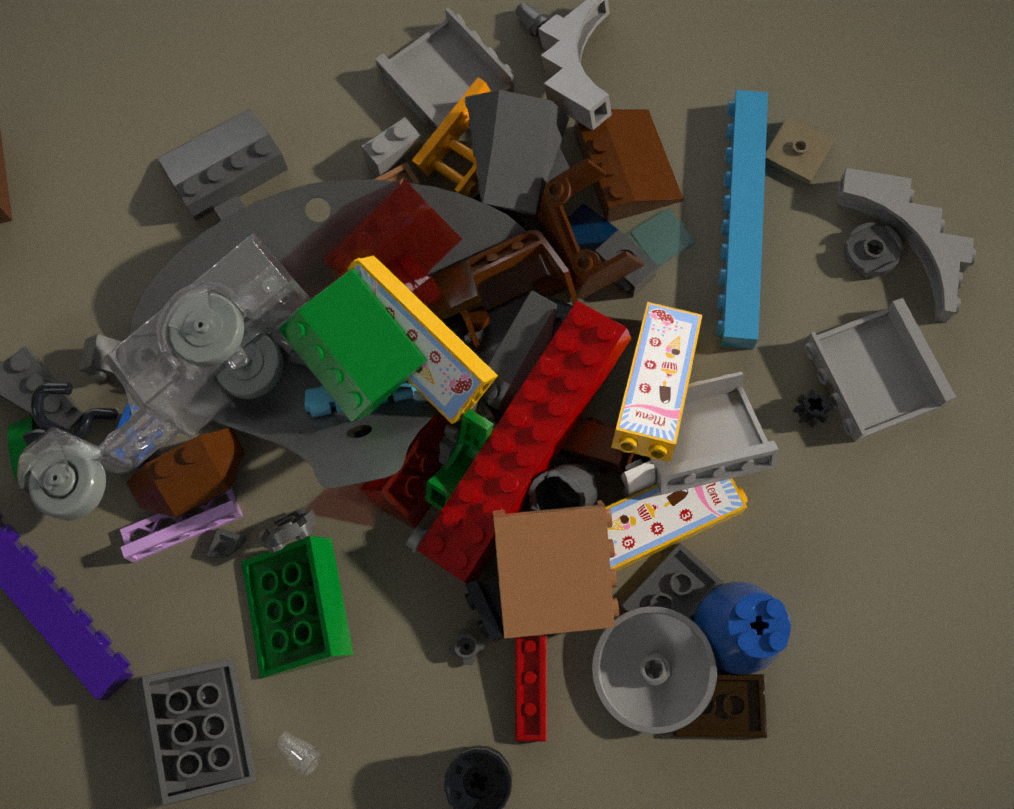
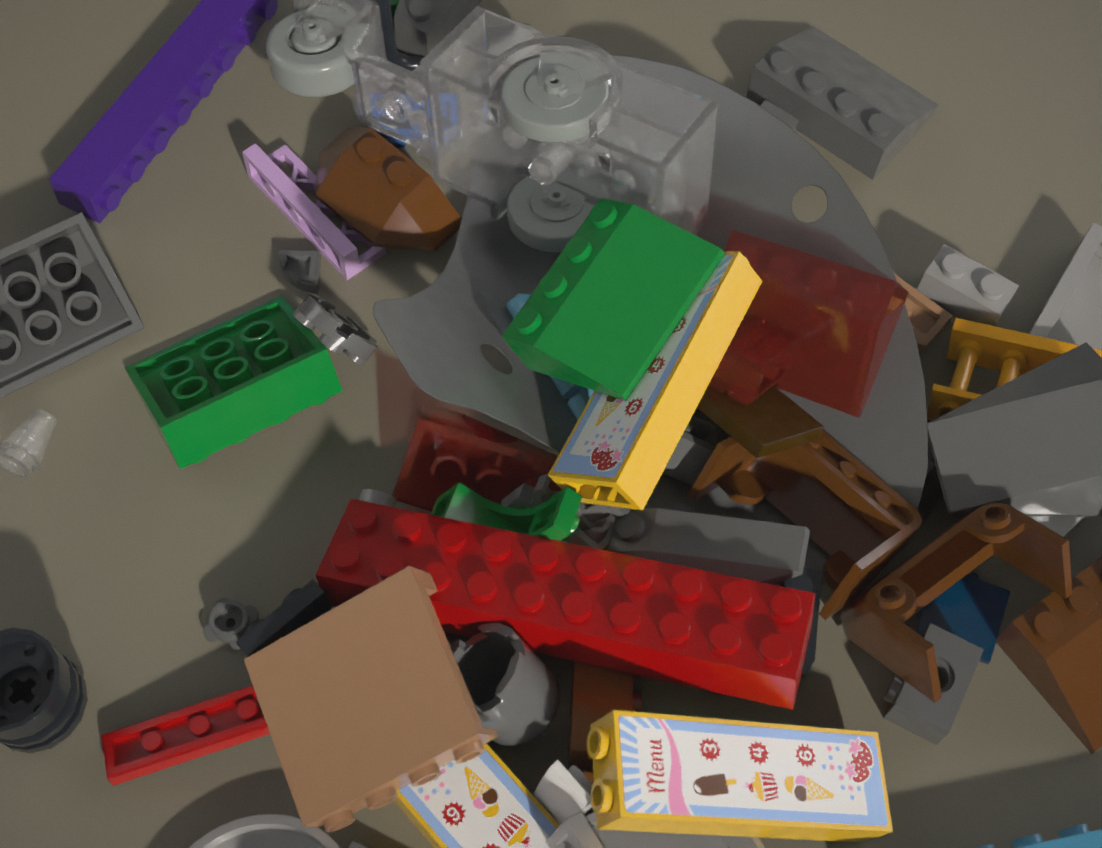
camera: 65 degrees right, 10 degrees down
(663, 237) = (1009, 738): clear light blue piece -> none

